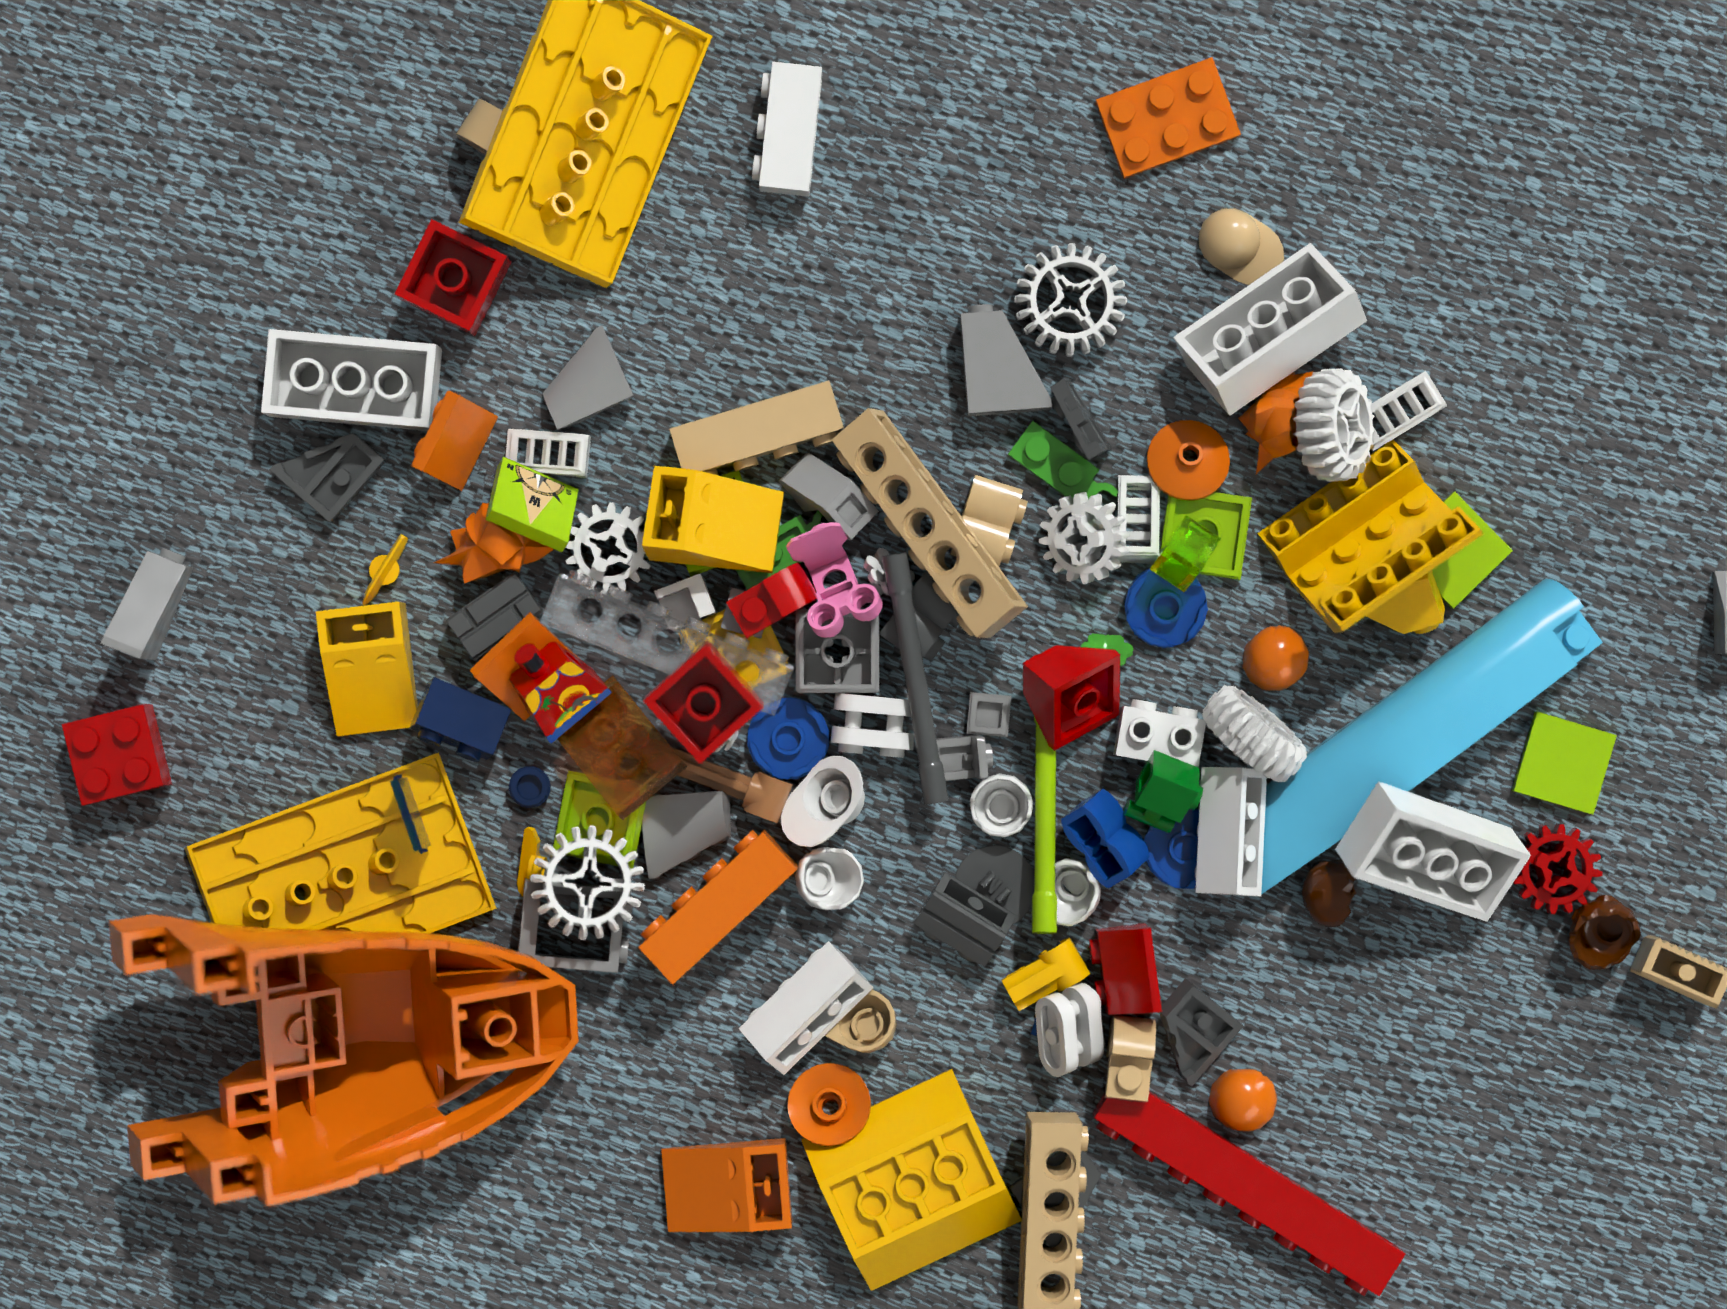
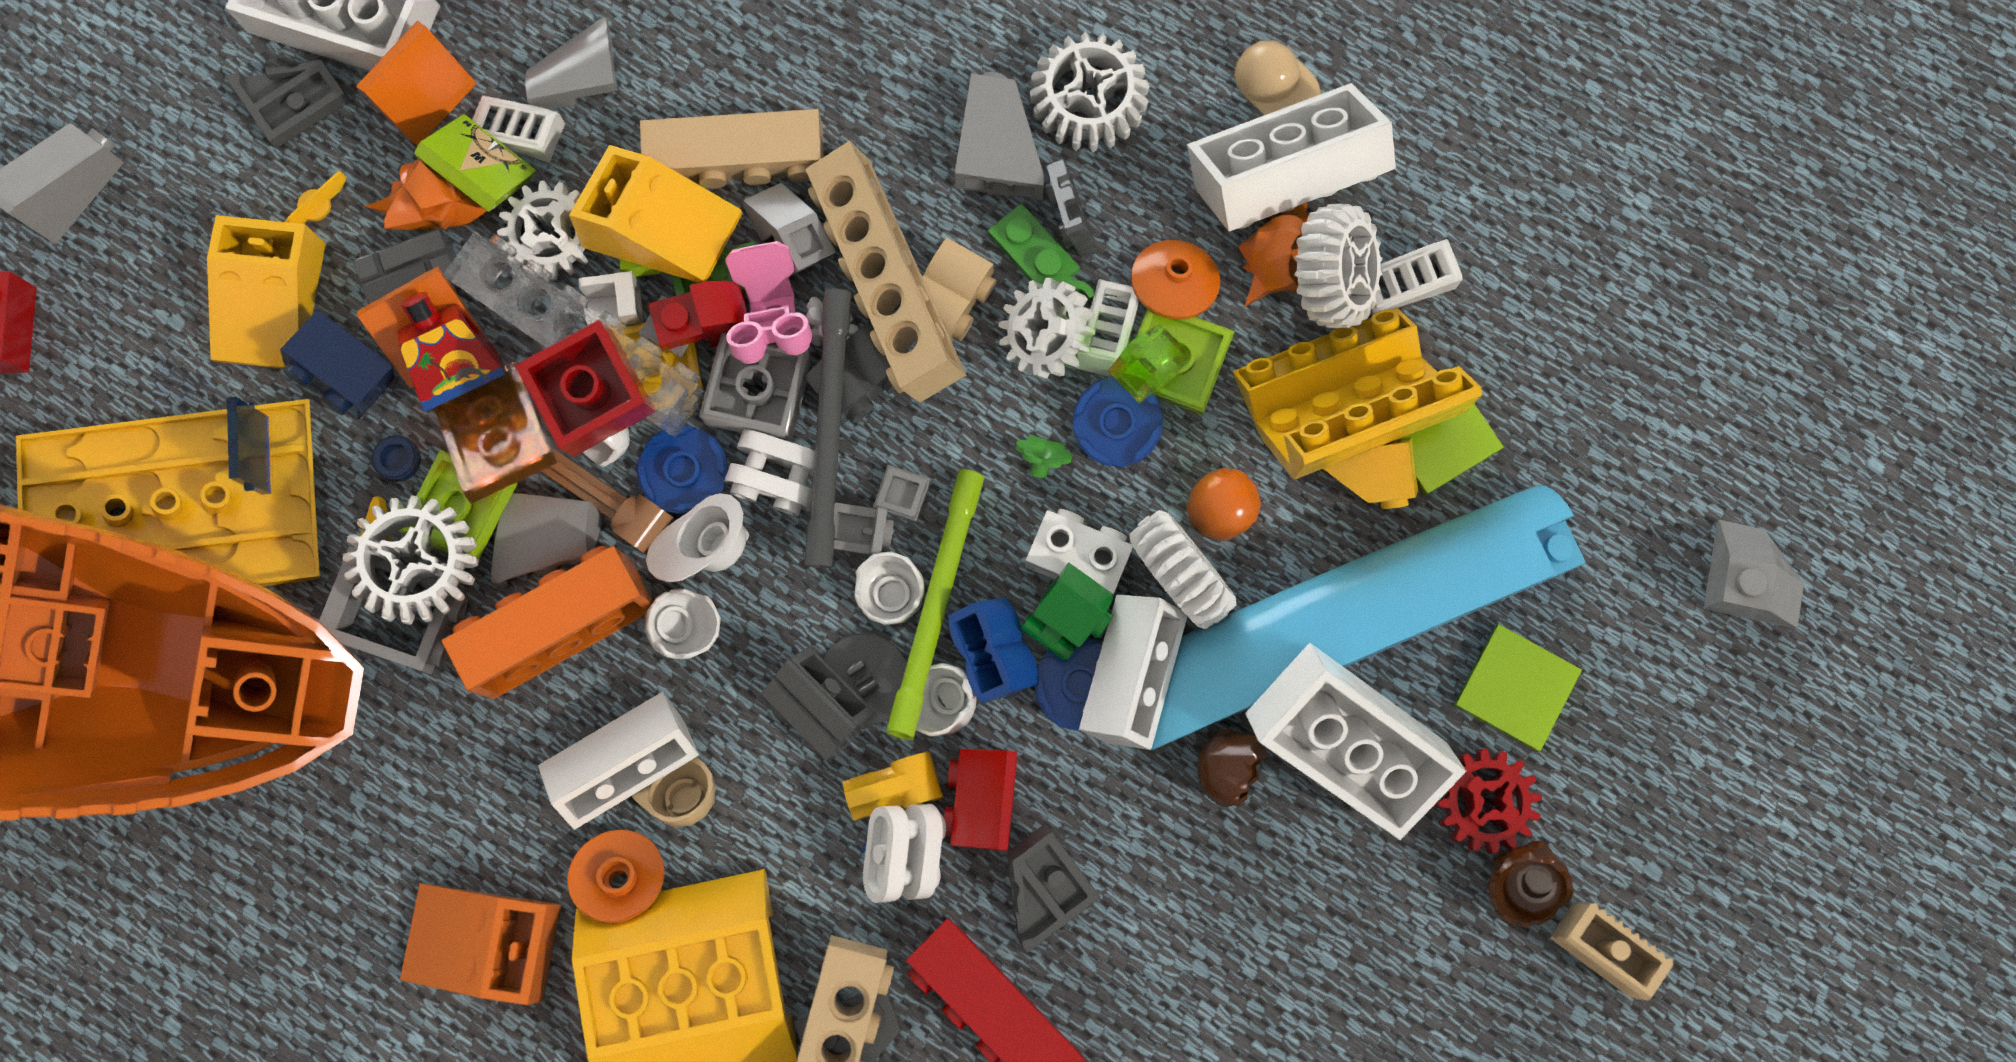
camera: 15 degrees right, 10 degrees down
(1072, 691) = (995, 481): red slope -> none
(1130, 1057) = (962, 901): tan brick -> none
(1243, 1099) = (1081, 982): orange hair -> none

